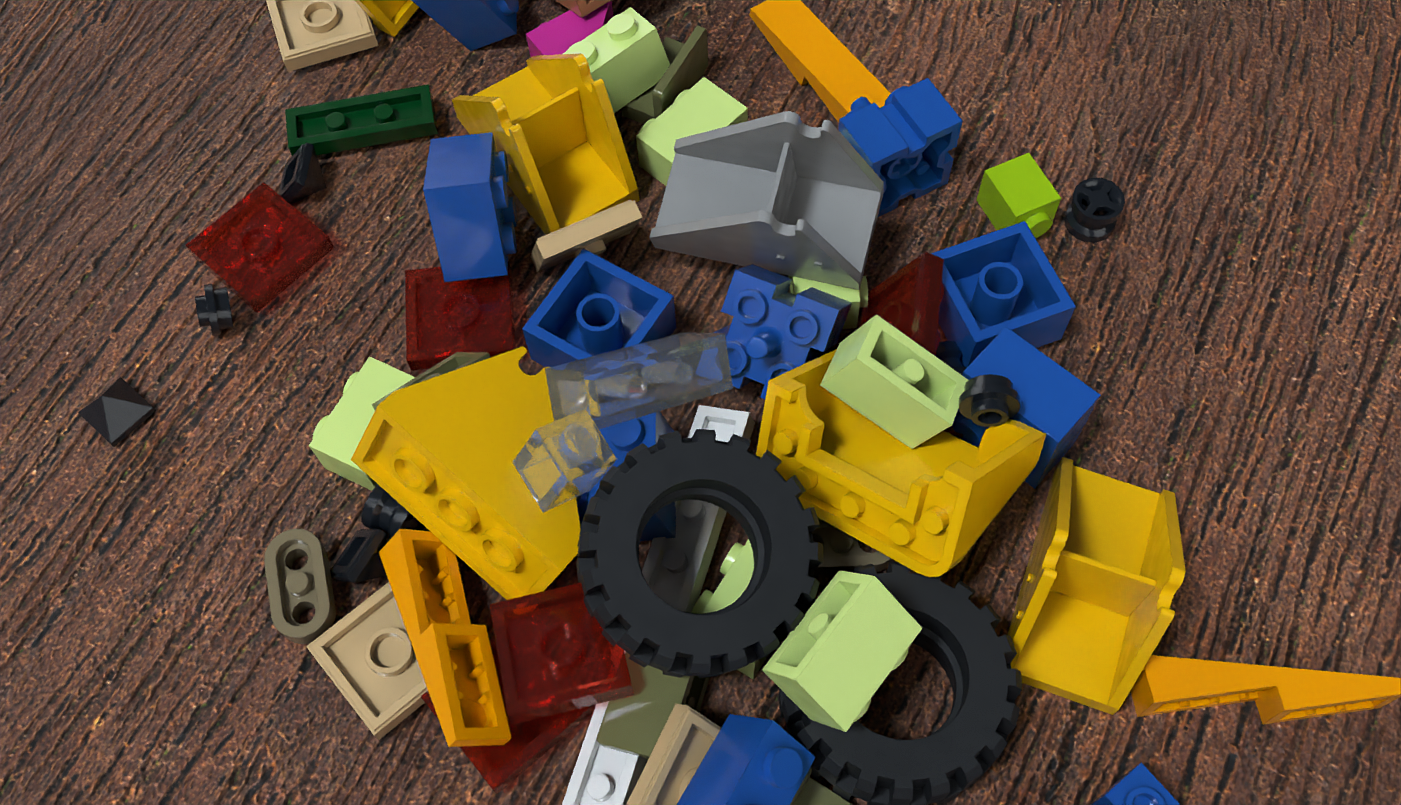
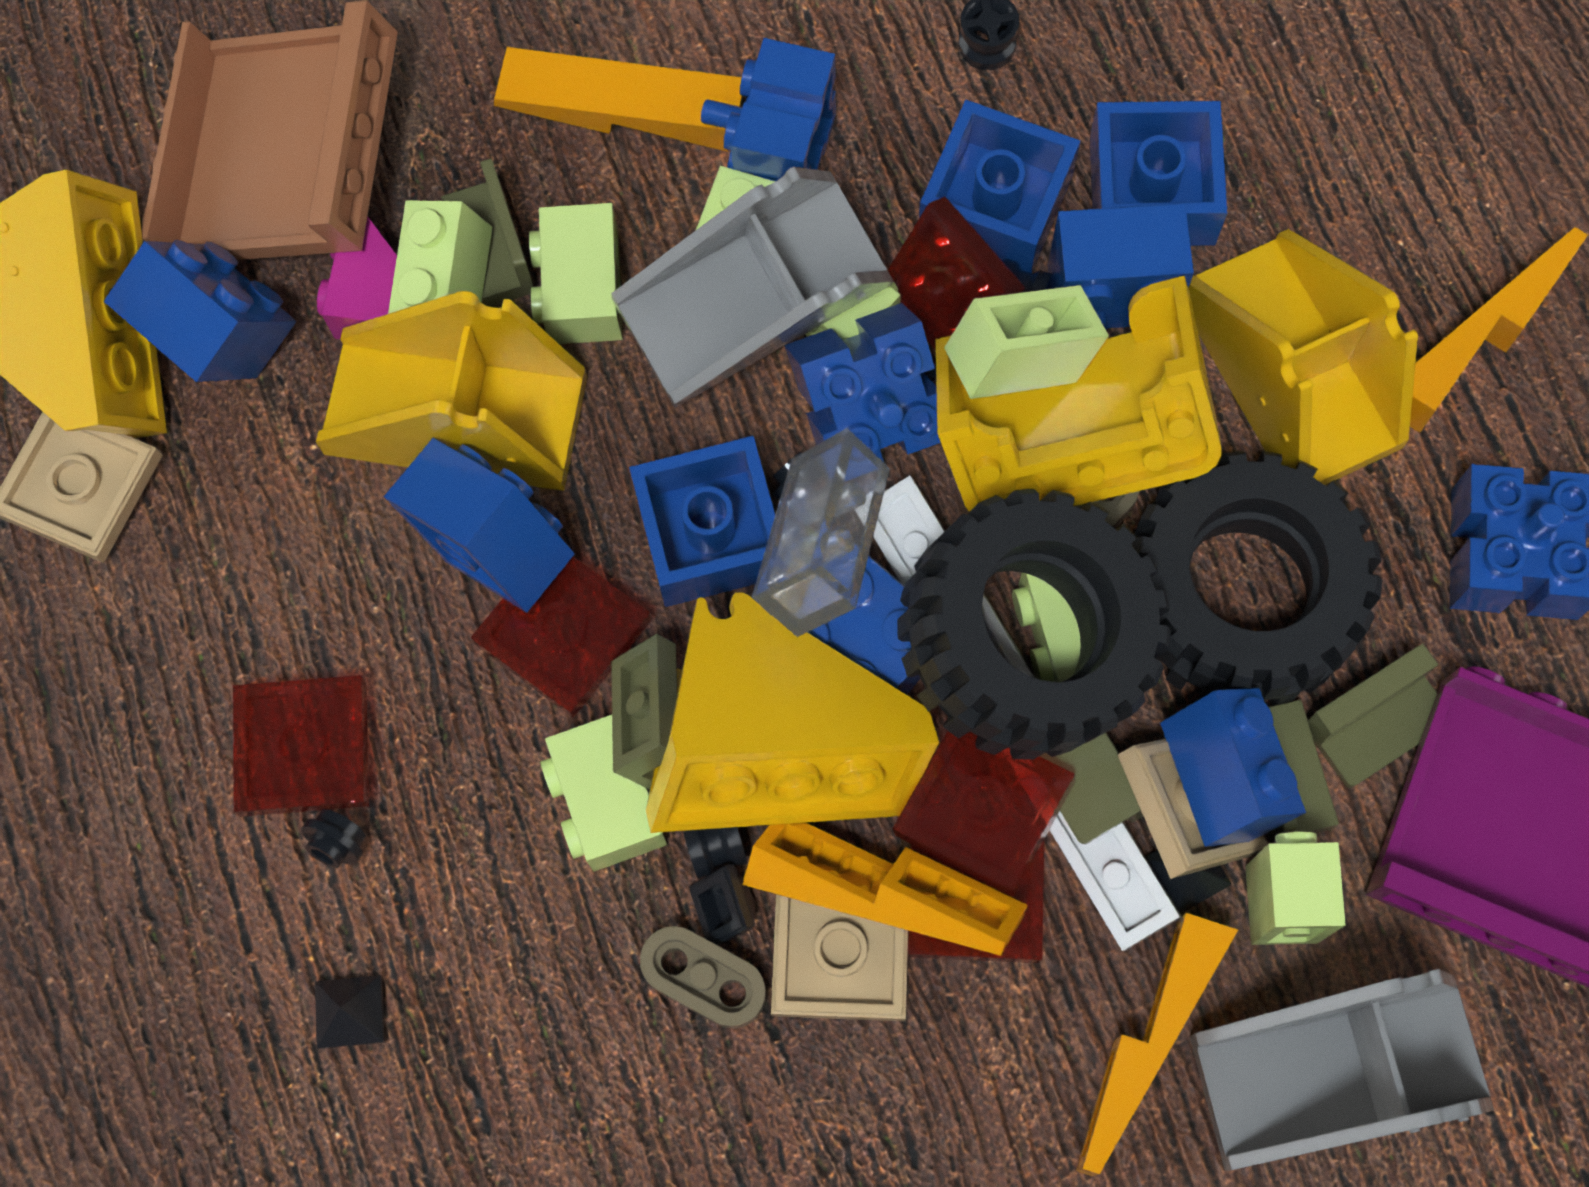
camera: 45 degrees left, 10 degrees up
(301, 175) = (250, 647): black slope -> none
(362, 120) = (247, 543): dark green plate -> none
(564, 459) = (855, 654): clear brick -> none
(588, 233) = (606, 456): tan plate -> none
(843, 649) = (1217, 587): yellowish green brick -> none
(989, 400) = (1117, 288): black plate -> none
(1018, 193) = (921, 79): lime brick -> none
(1132, 369) = (1161, 157): none -> blue brick

